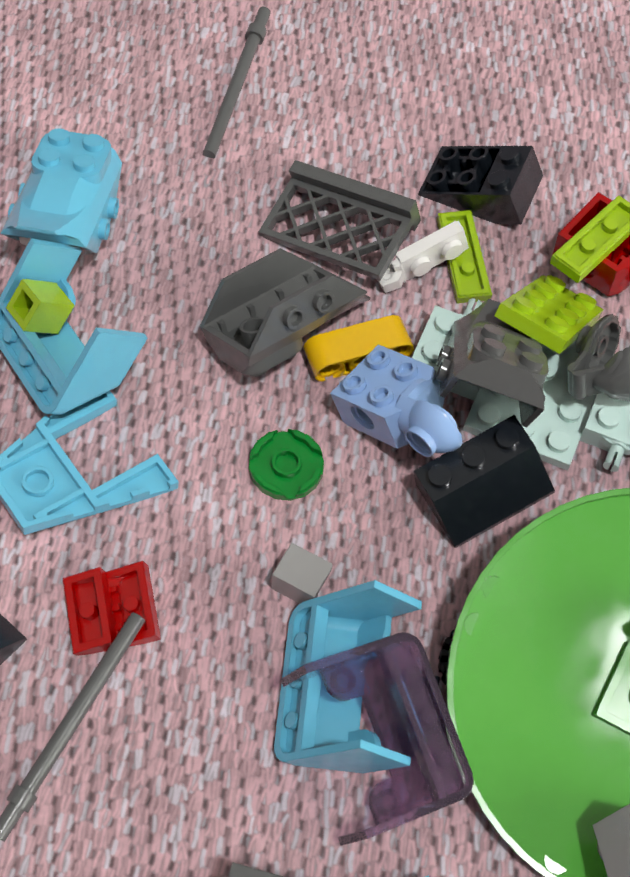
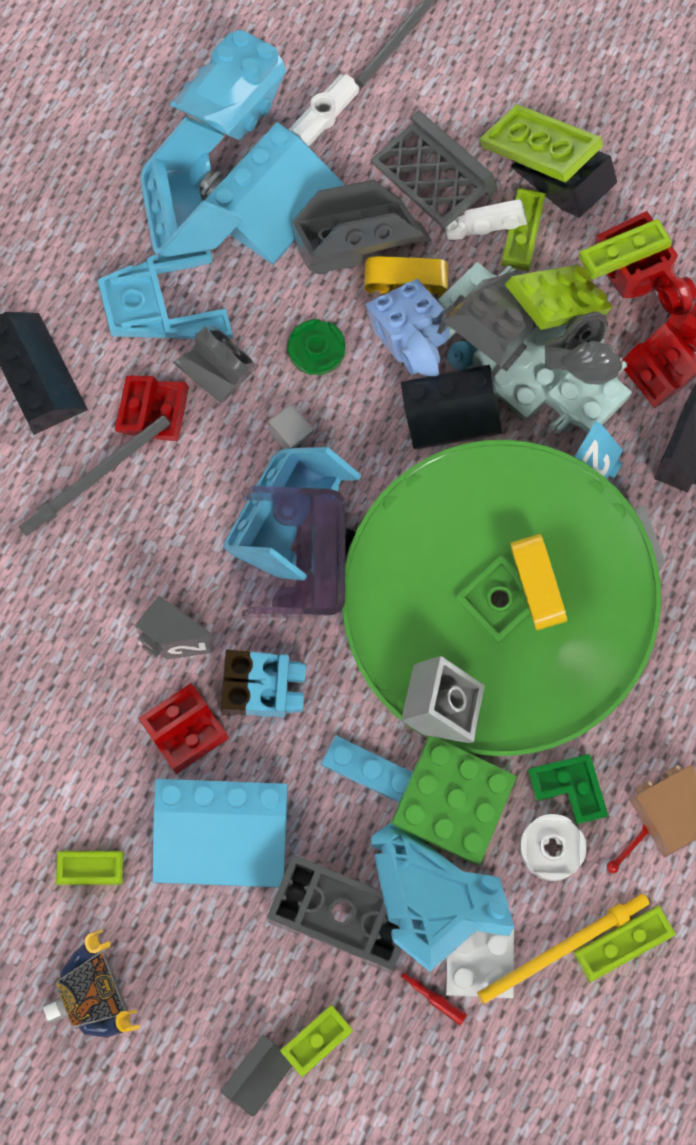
camera: 25 degrees right, 10 degrees up
(39, 306) = (179, 169): lime brick -> none
(83, 313) = (210, 182): none -> light grey plate
(164, 292) = (271, 190): none -> medium azure slope
(177, 525) = (216, 363): none -> dark grey piece
(182, 195) = (332, 101): none -> white piece
(448, 155) = (541, 142): none -> lime plate
(465, 414) = (461, 354): none -> medium azure piece

